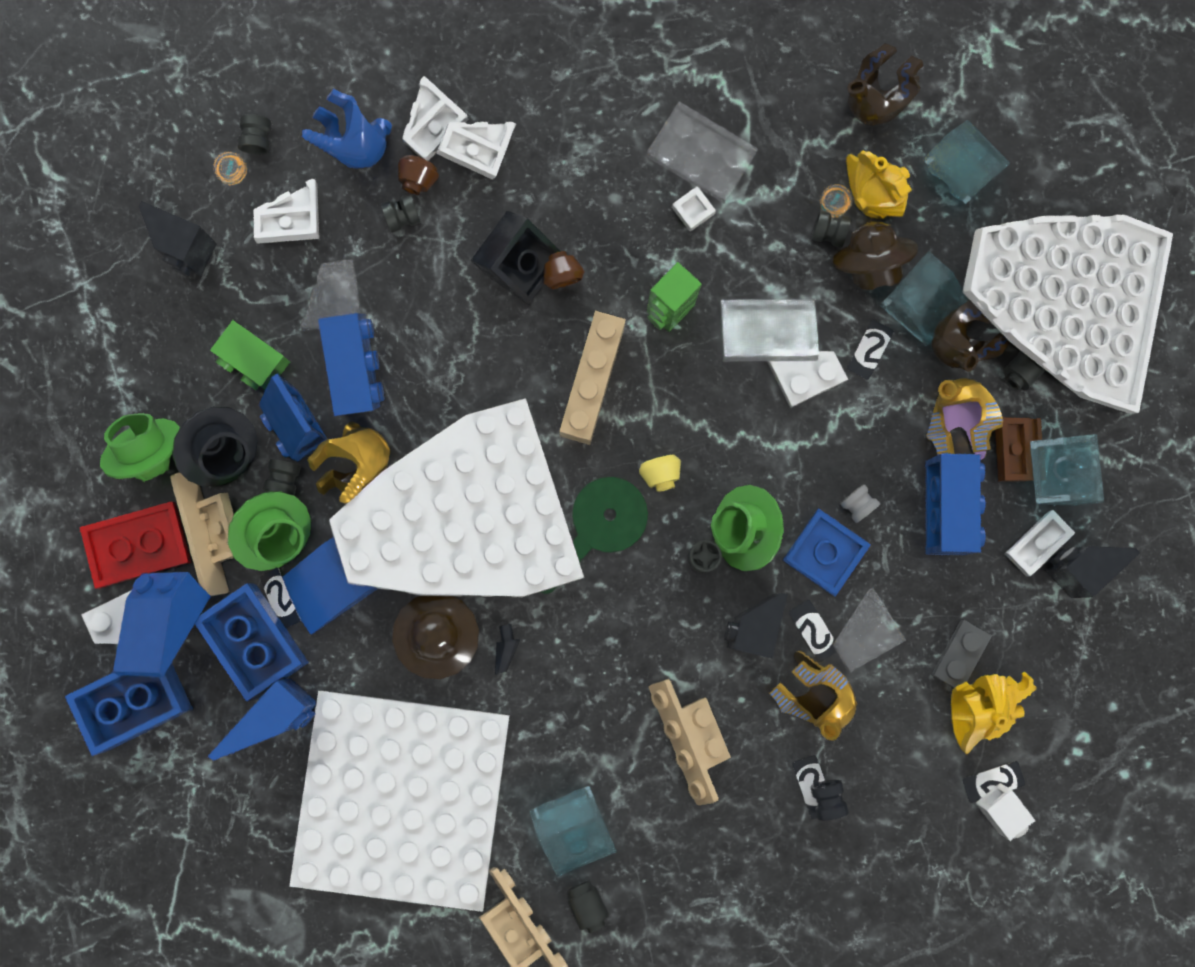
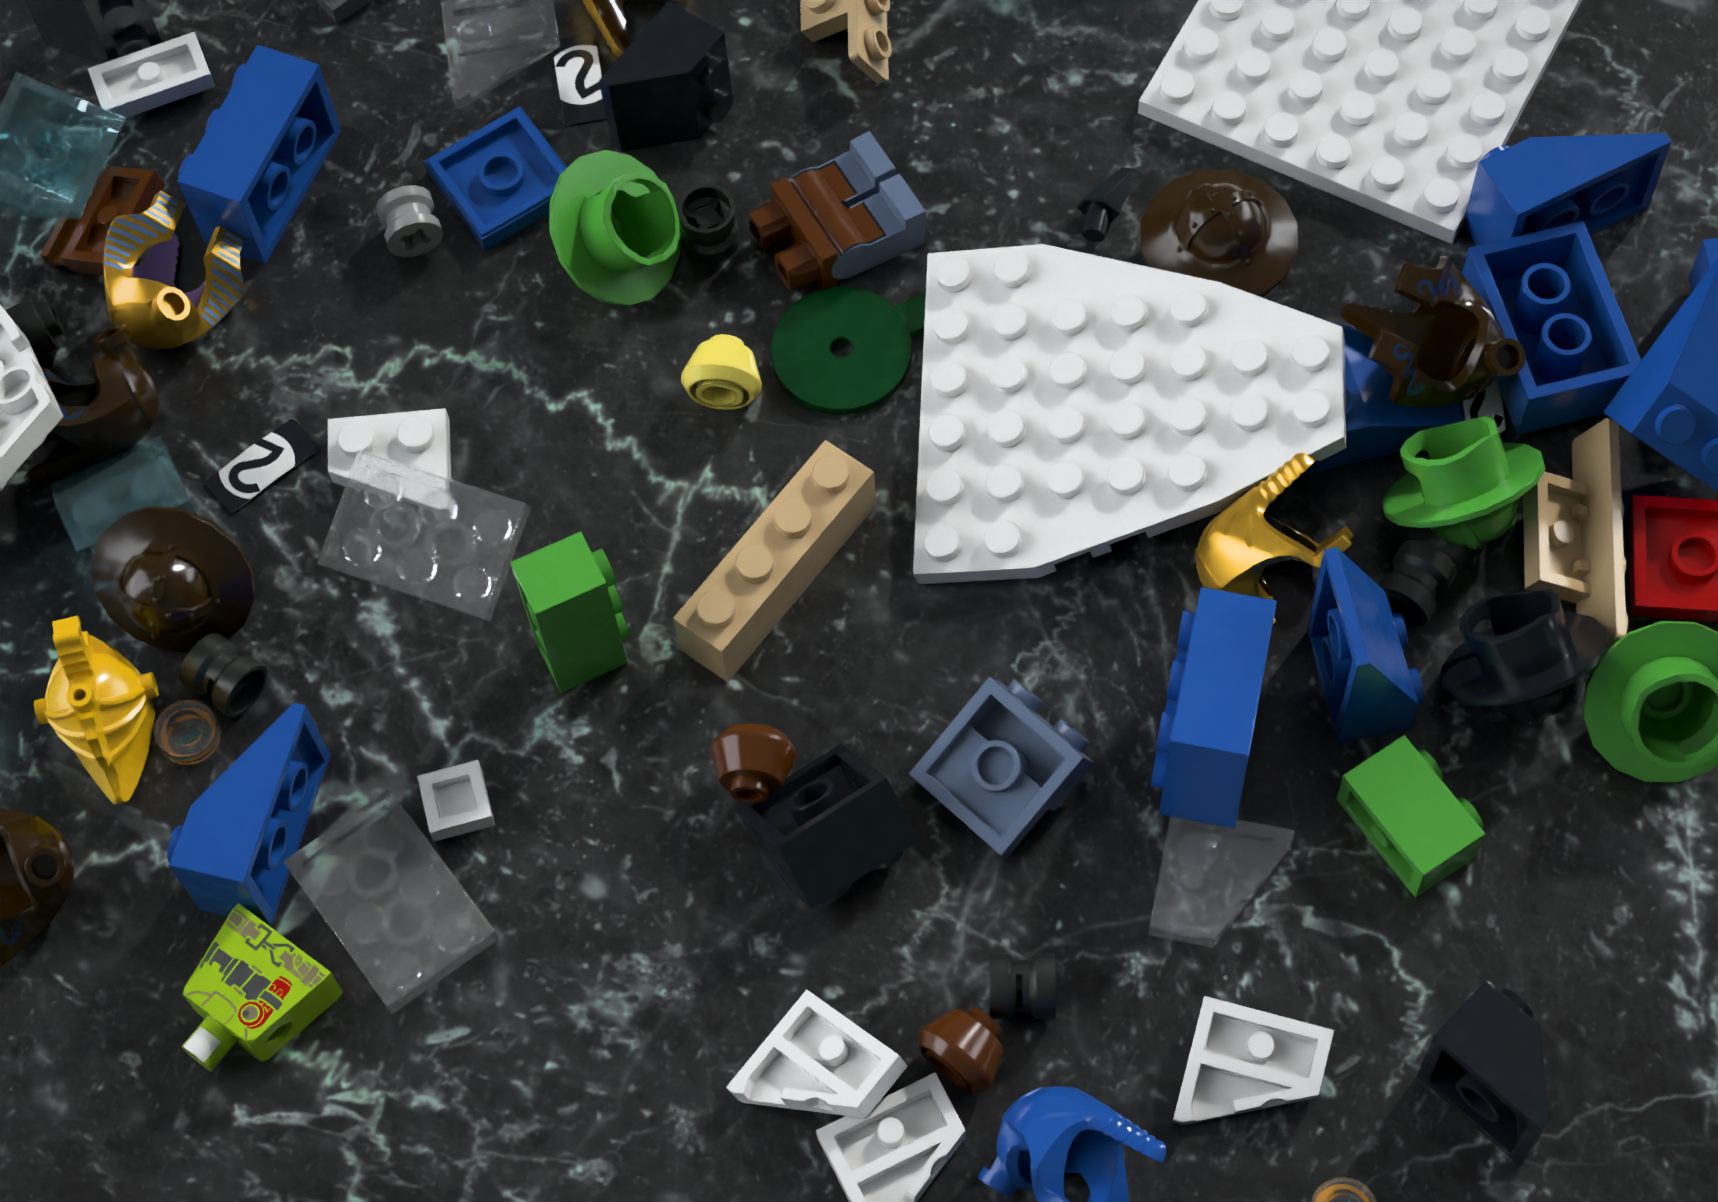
camera: 150 degrees left, 20 degrees down
(298, 599) = (1444, 346): none -> dark brown piece
(445, 314) = (1003, 764): none -> sand blue plate
(646, 578) = (840, 217): none -> hips
(742, 89) = (254, 991): none -> torso
(776, 137) = (252, 820): none -> blue slope

